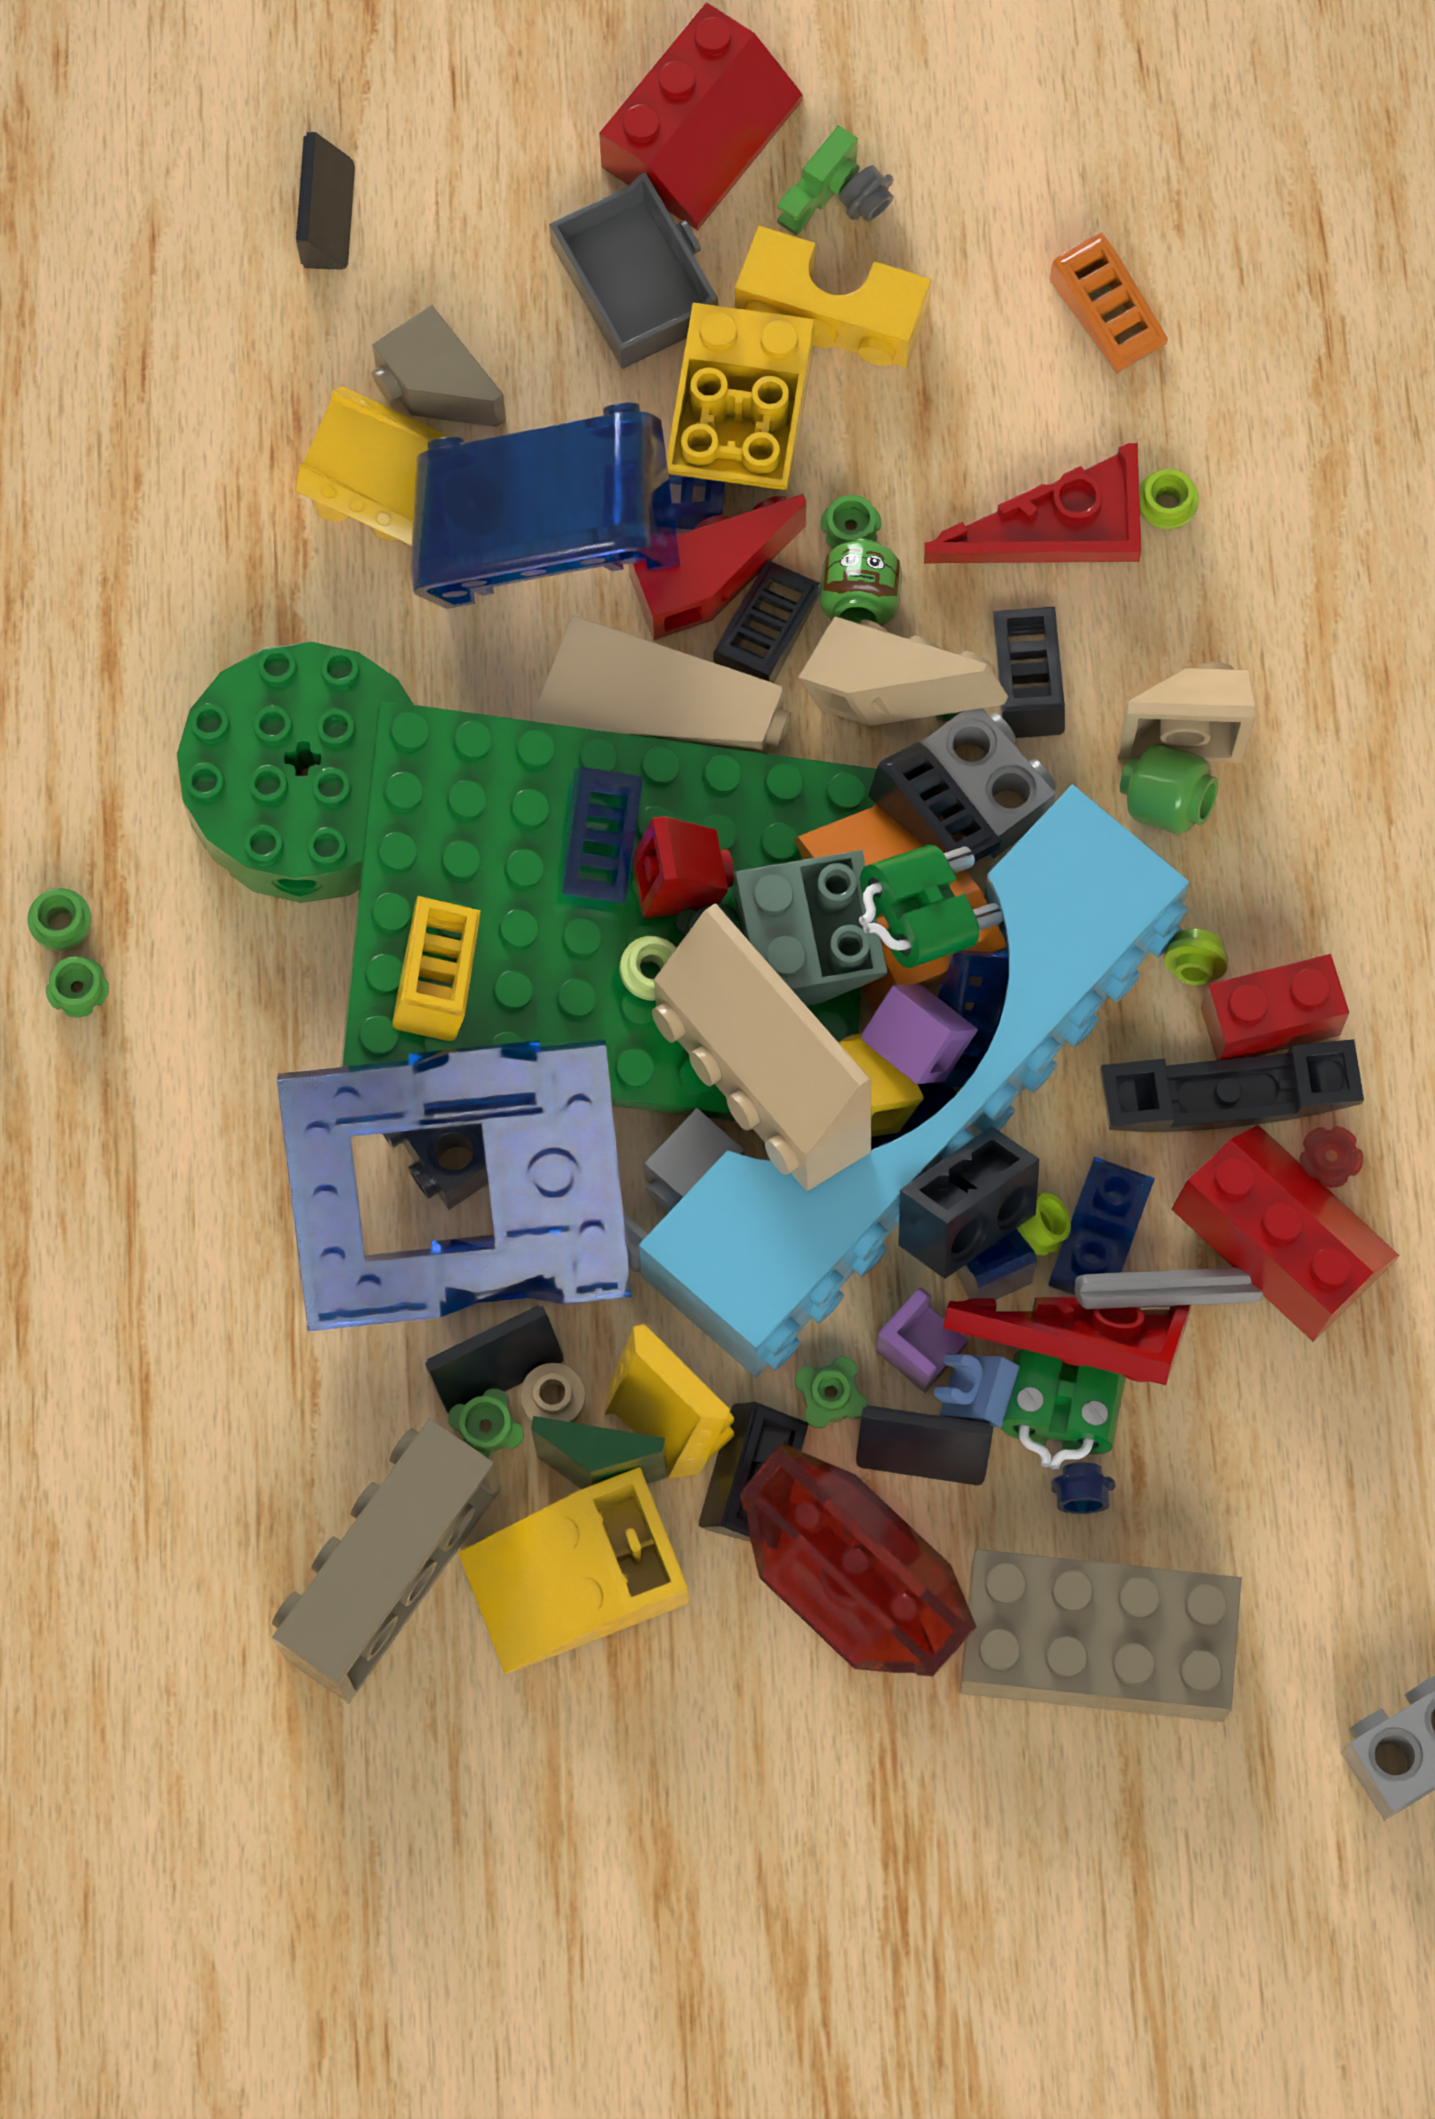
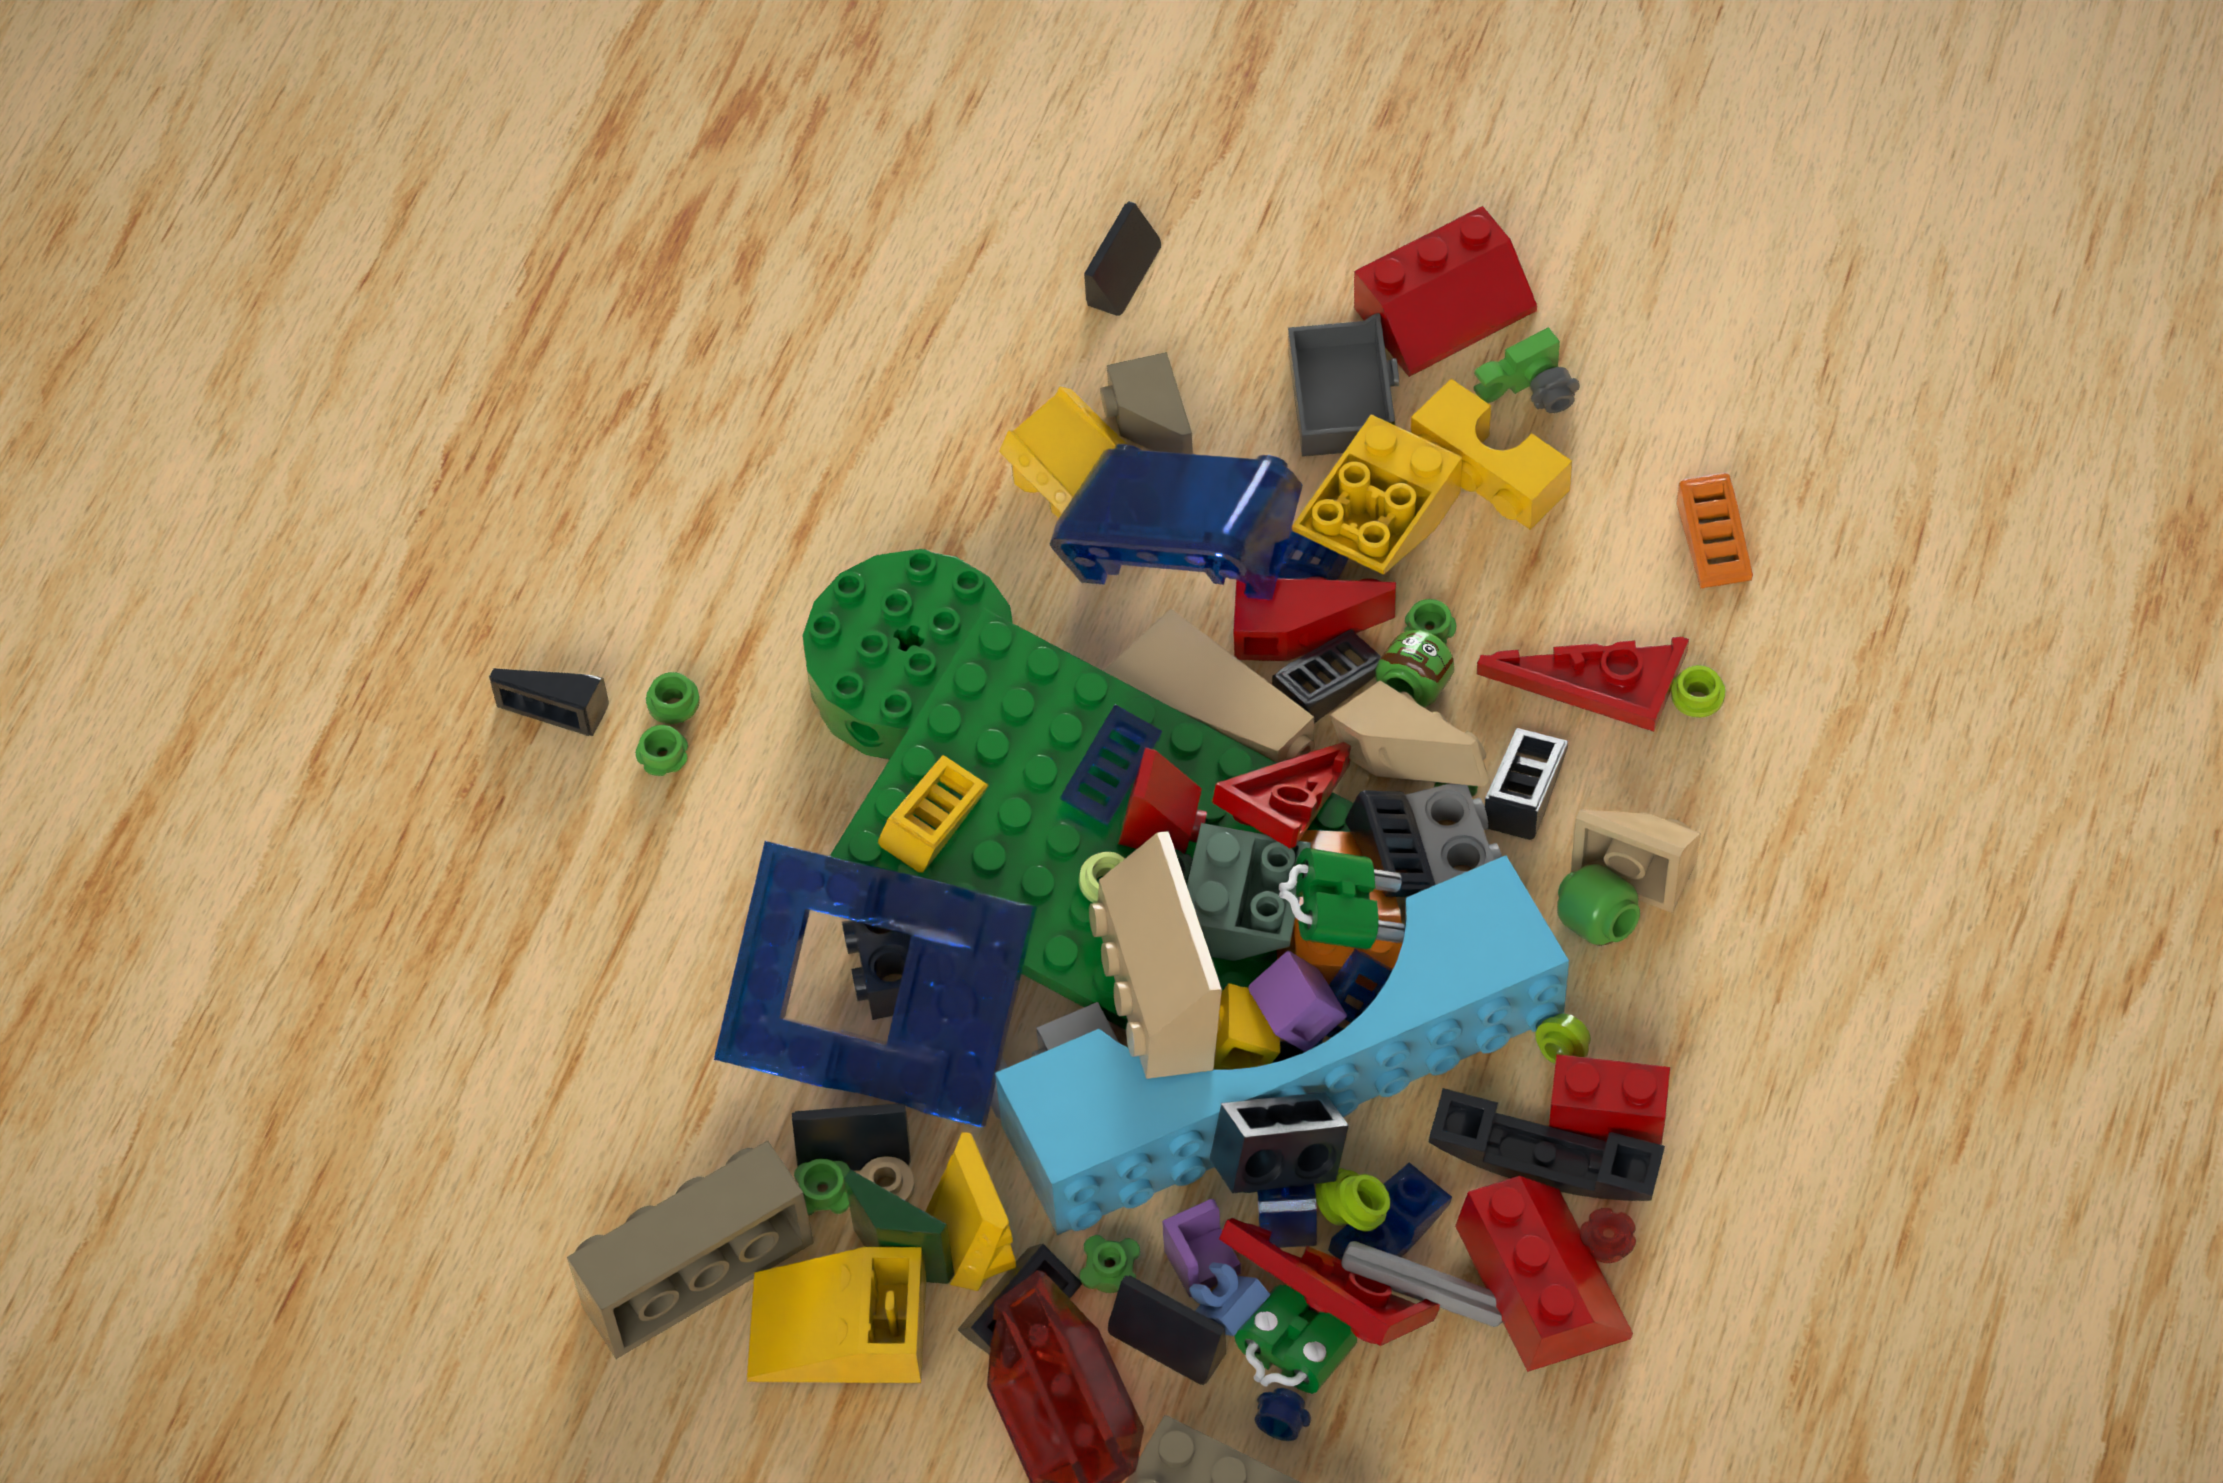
camera: 25 degrees right, 15 degrees down
(802, 797) = (1285, 795): none -> red wing
(1073, 1227) = (1362, 1201): none -> lime plate

